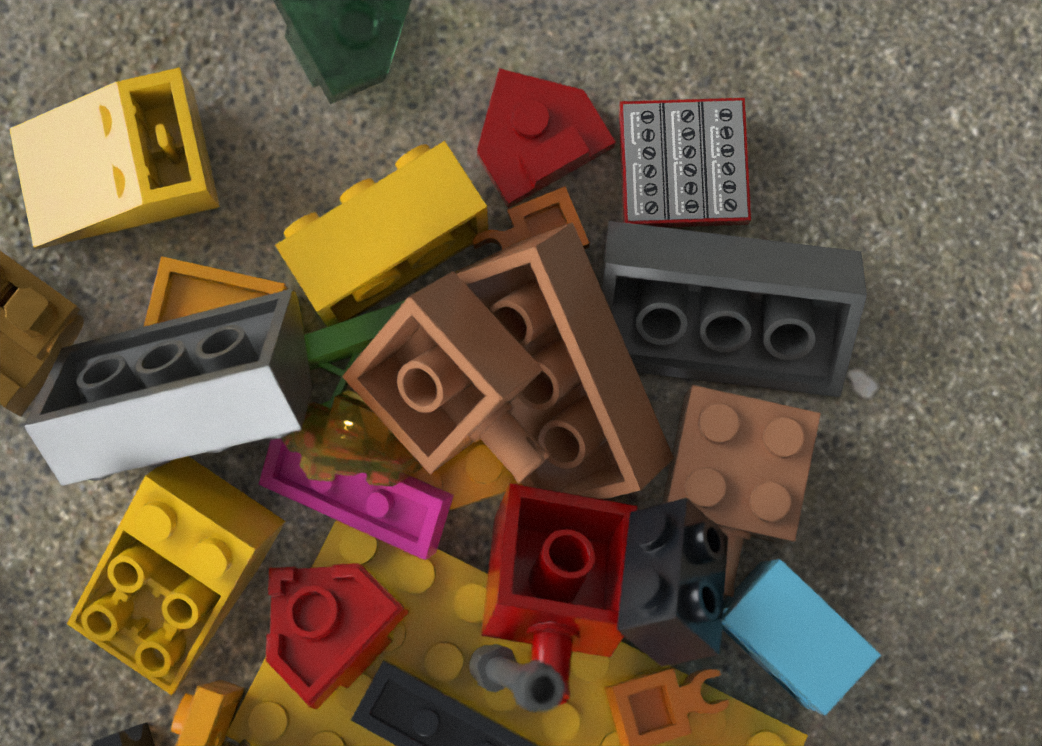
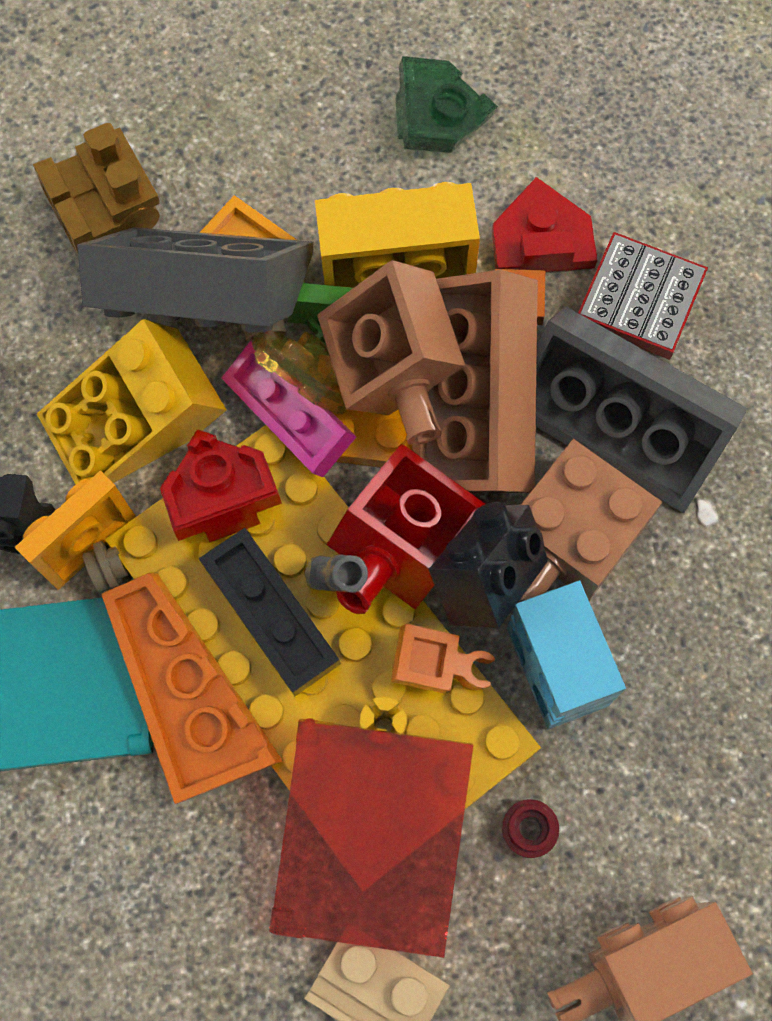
camera: 30 degrees right, 10 degrees down
(114, 160) = (238, 121): yellow slope -> none

